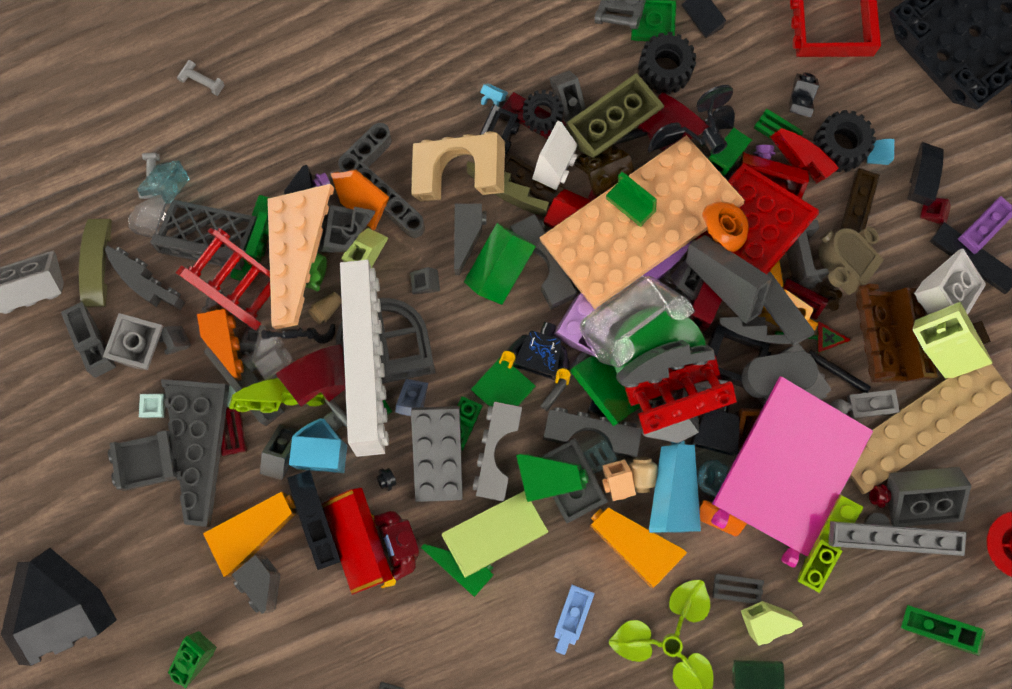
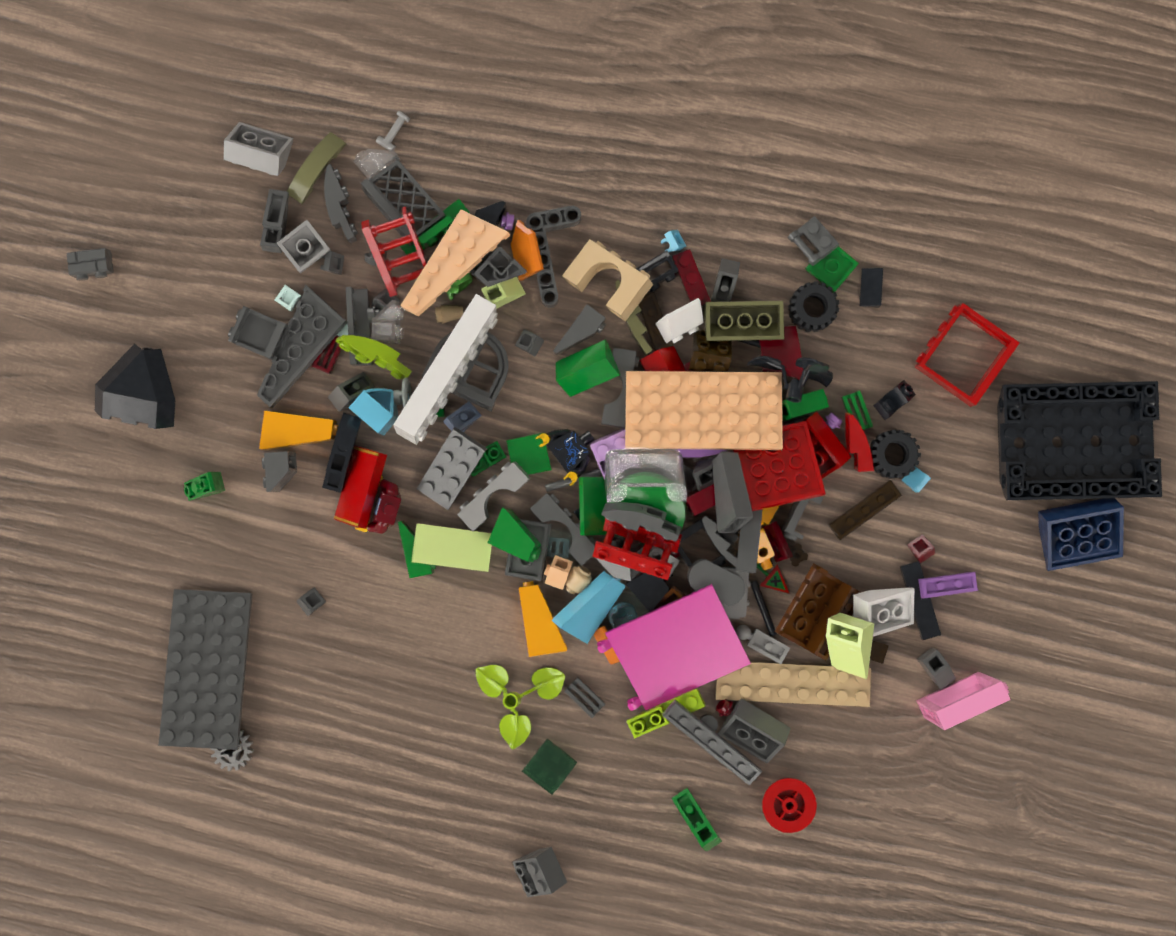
camera: 40 degrees right, 10 degrees up
(165, 180) = (399, 143): clear light blue bracket -> none
(187, 71) = (471, 68): light grey piece -> none
(218, 333) = (362, 282): orange slope -> none
(294, 333) = (413, 319): black piece -> none
(315, 373) = (407, 359): dark red slope -> none
(386, 479) = (407, 460): black plate -> none
(545, 100) = (699, 269): black tyre -> none
(572, 617) = (464, 636): light blue hinge -> none
(632, 199) = (704, 393): green panel -> none
(726, 224) = (754, 457): orange hat -> none
(769, 622) = (588, 732): yellowish green slope -> none
(850, 257) = (828, 539): dark tan piece -> none
(926, 174) = (935, 518): black slope -> none

